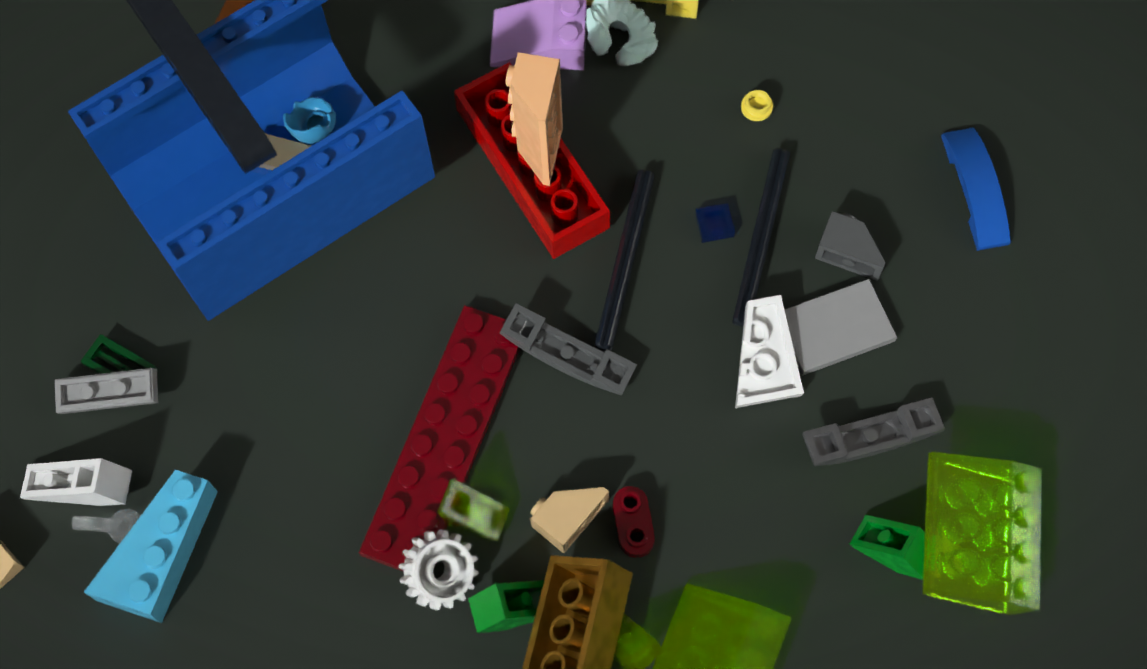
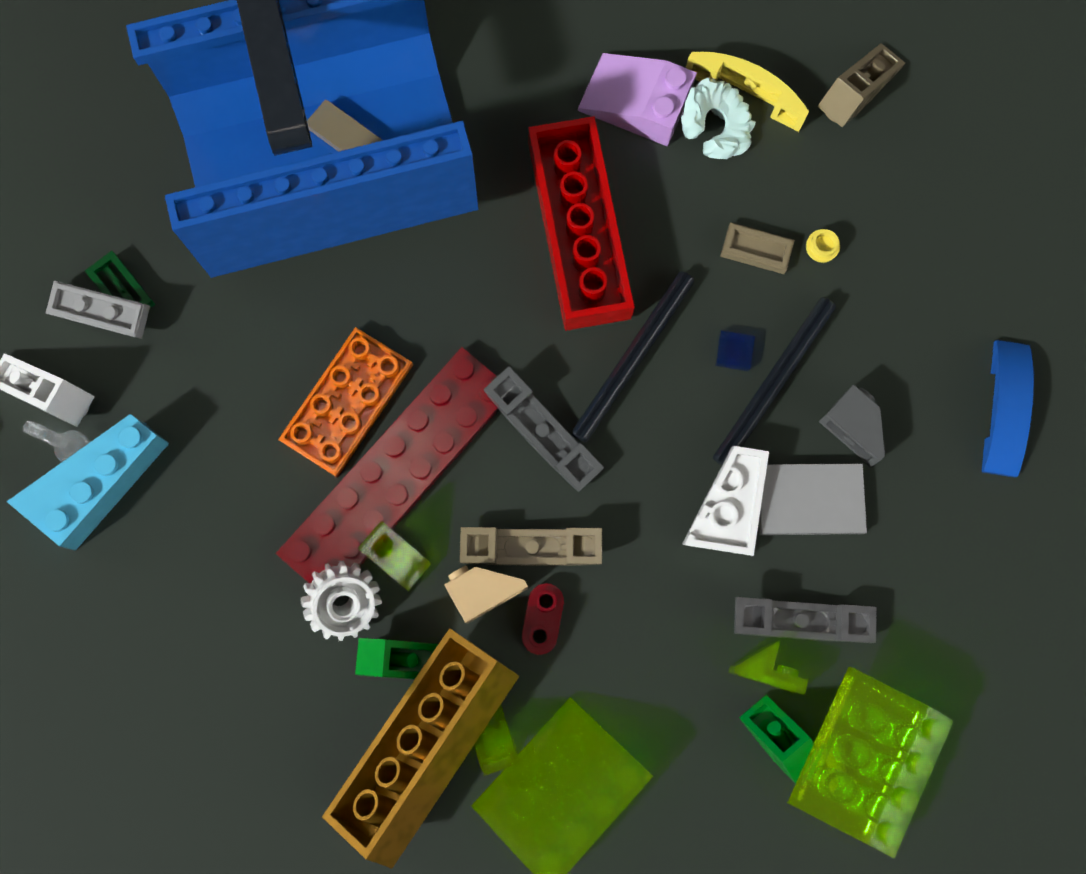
camera: 15 degrees right, 10 degrees up
(310, 120) = (380, 107): dark azure hair -> none
(373, 393) = (346, 402): none -> orange tile
(536, 111) = (595, 183): light nougat slope -> none
(599, 459) = (531, 546): none -> dark tan slope
(699, 128) = (757, 248): none -> dark tan tile
(852, 493) = (760, 667): none -> clear neon green slope

